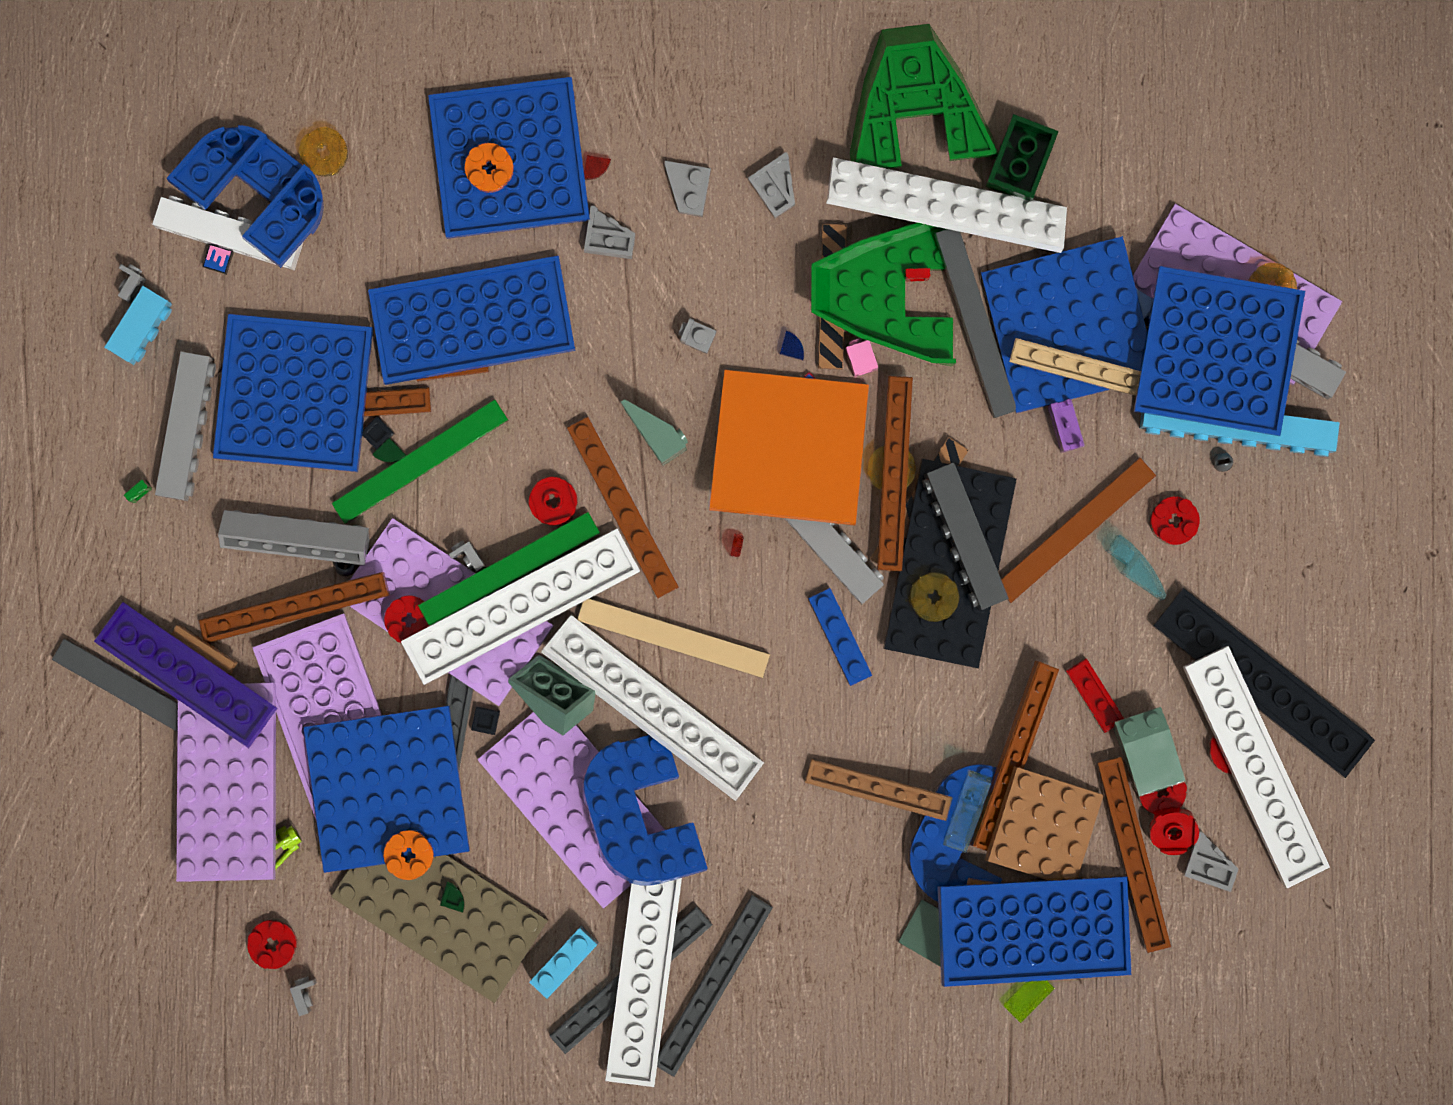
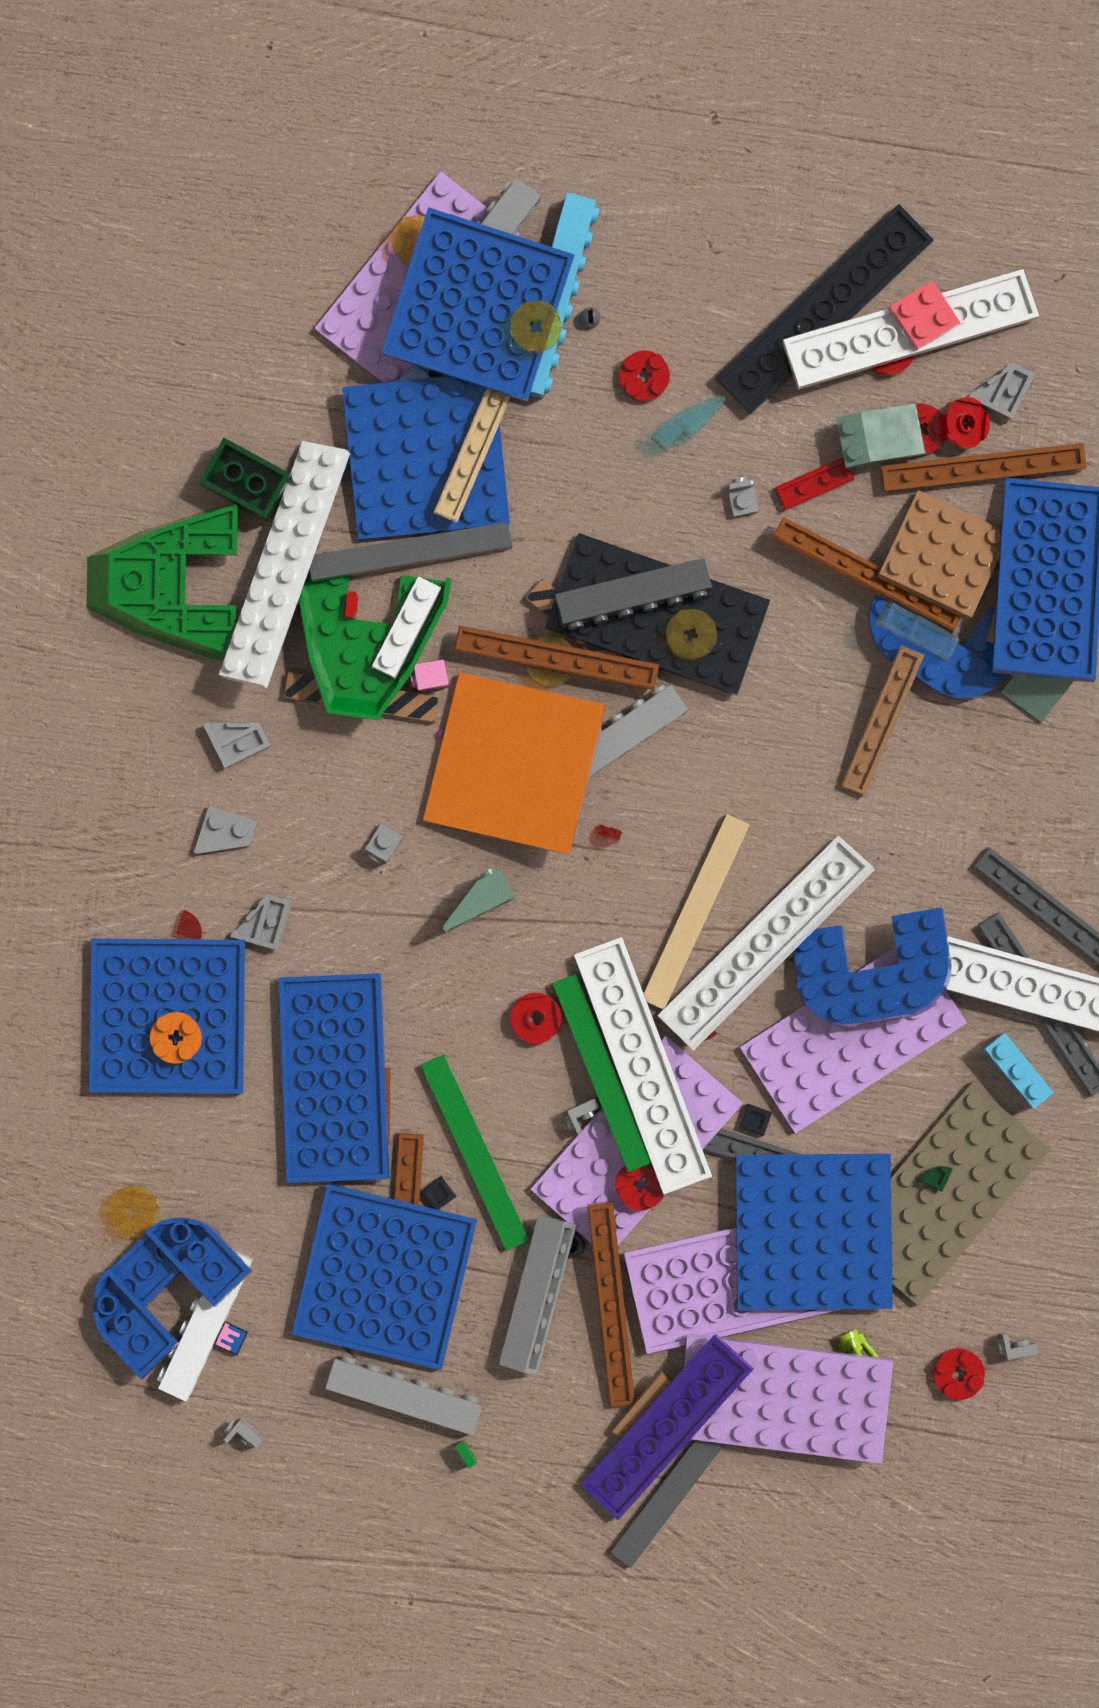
camera: 85 degrees left, 0 degrees up
(139, 326) = (291, 1430): medium azure brick -> none
(389, 452) = (460, 1183): dark green tile -> none
(419, 846) = (874, 1225): orange plate -> none
(553, 694) = (738, 1044): sand green slope -> none
(622, 507) = (552, 946): dark orange plate -> none
(792, 347) = (408, 746): clear blue tile -> none
(840, 637) = (718, 738): blue plate -> none
(903, 328) = (406, 627): none -> white plate
(1066, 425) = (531, 474): medium lavender hinge -> none
(1072, 629) = (742, 497): none -> light grey bracket
(1077, 529) = (639, 477): dark orange tile -> none
(1219, 404) = (538, 341): none -> clear yellow plate
(1271, 778) = (924, 315): none -> coral plate

